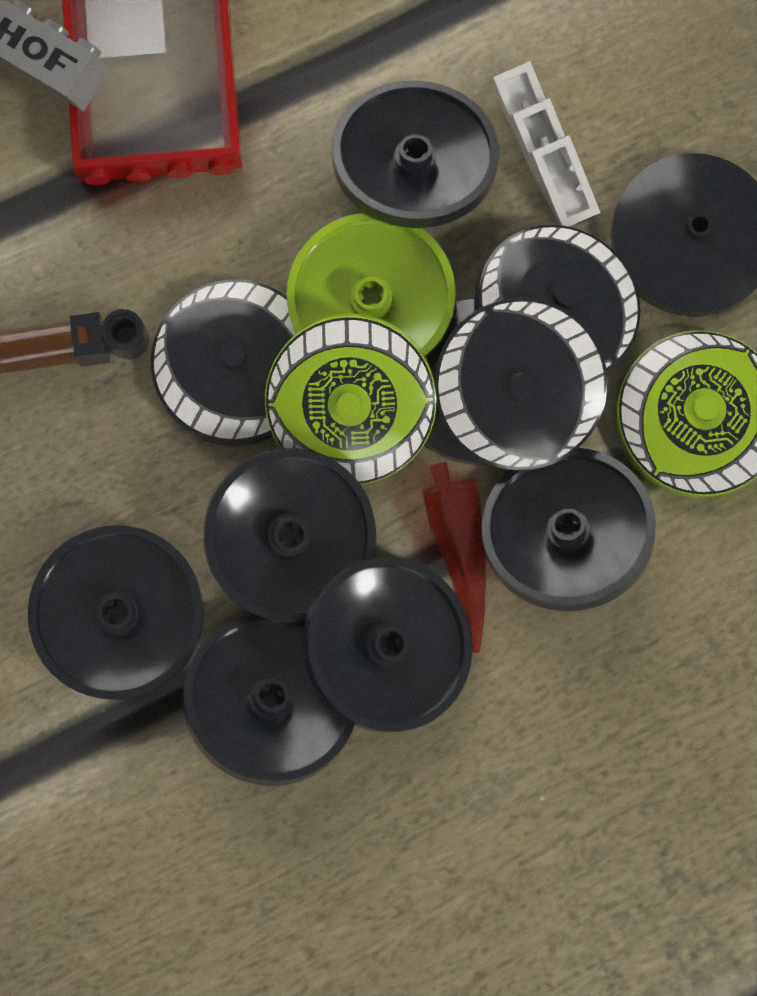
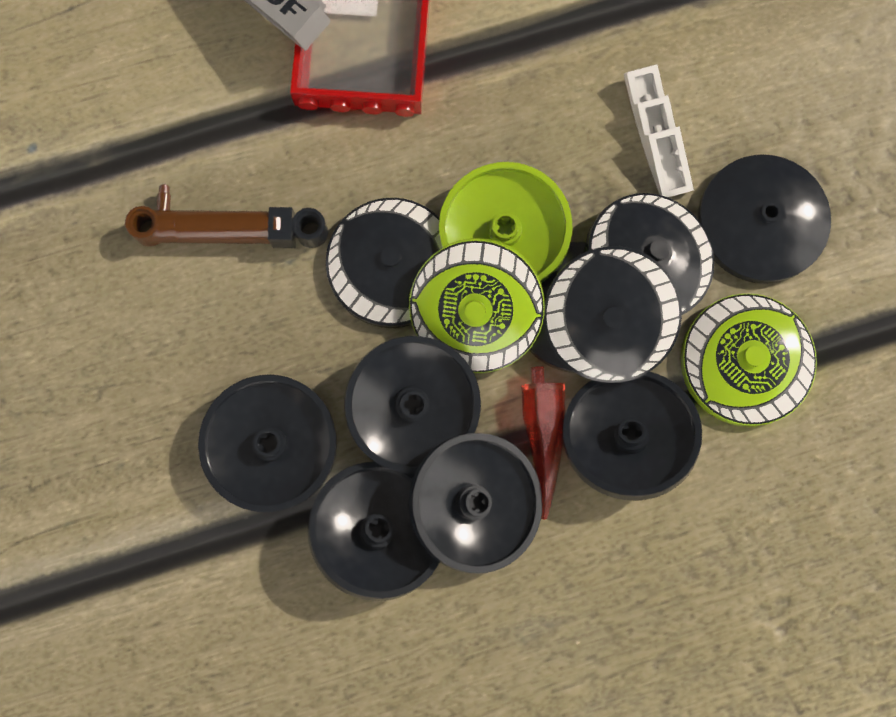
camera: 10 degrees right, 0 degrees up
(415, 154) = (556, 123): black dish -> none

